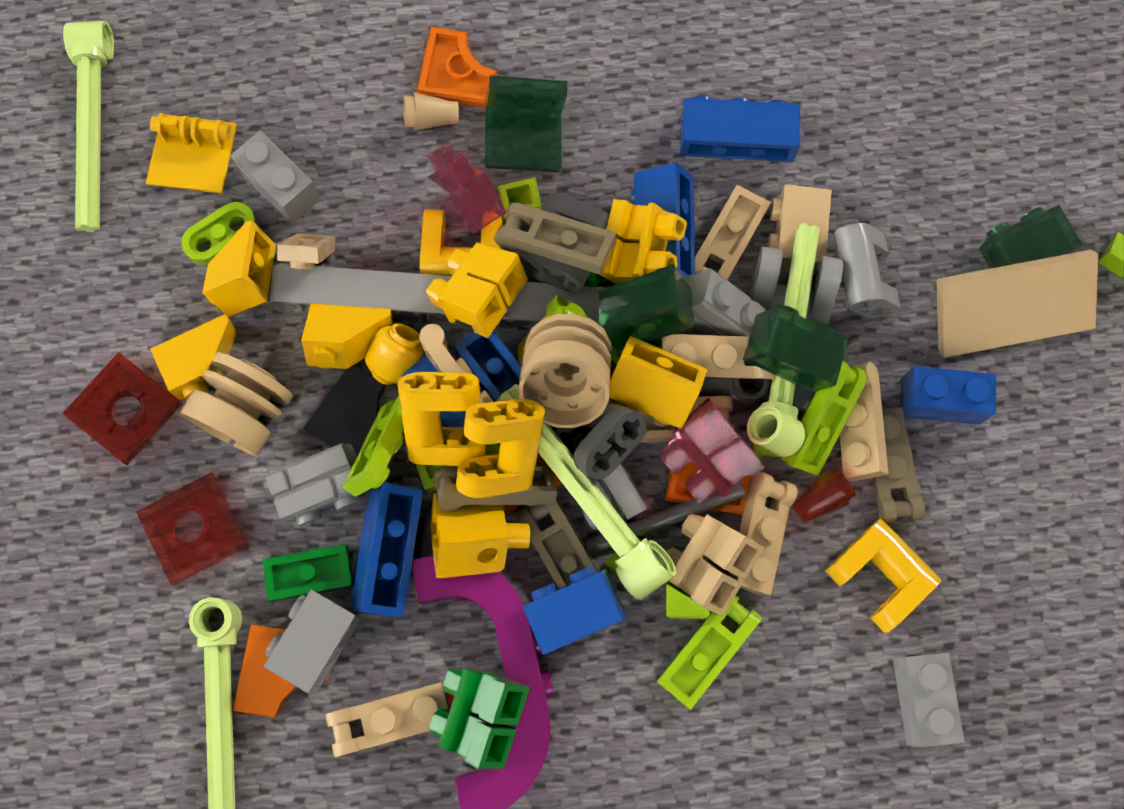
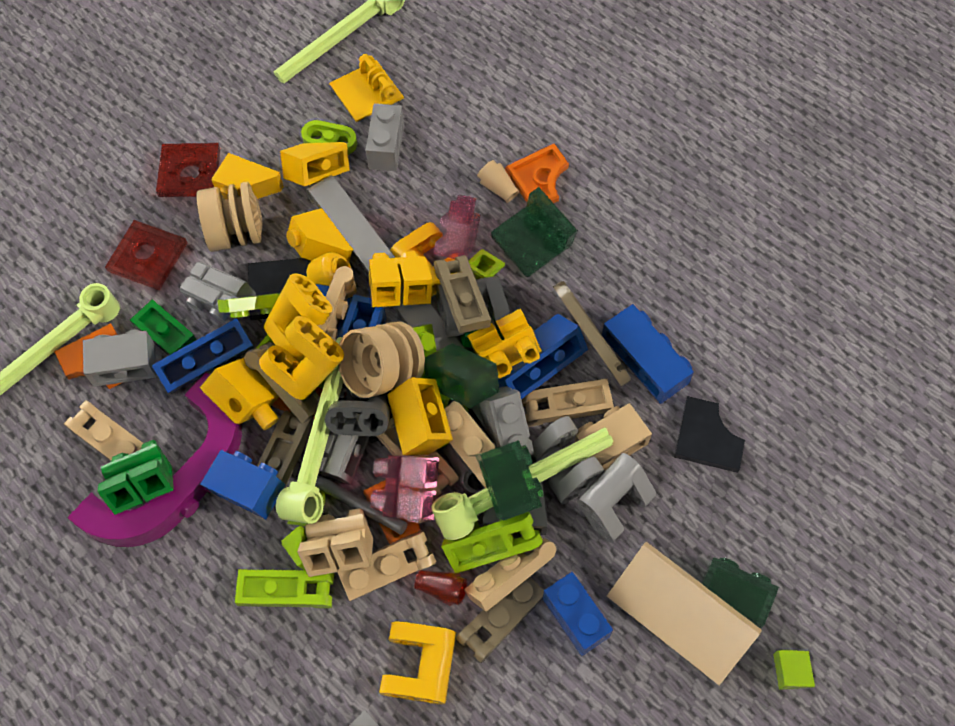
camera: 55 degrees right, 10 degrees down
(305, 250) = (352, 181): tan plate -> none
(689, 157) = (592, 333): none -> dark tan tile
(858, 150) = (705, 437): none -> black tile

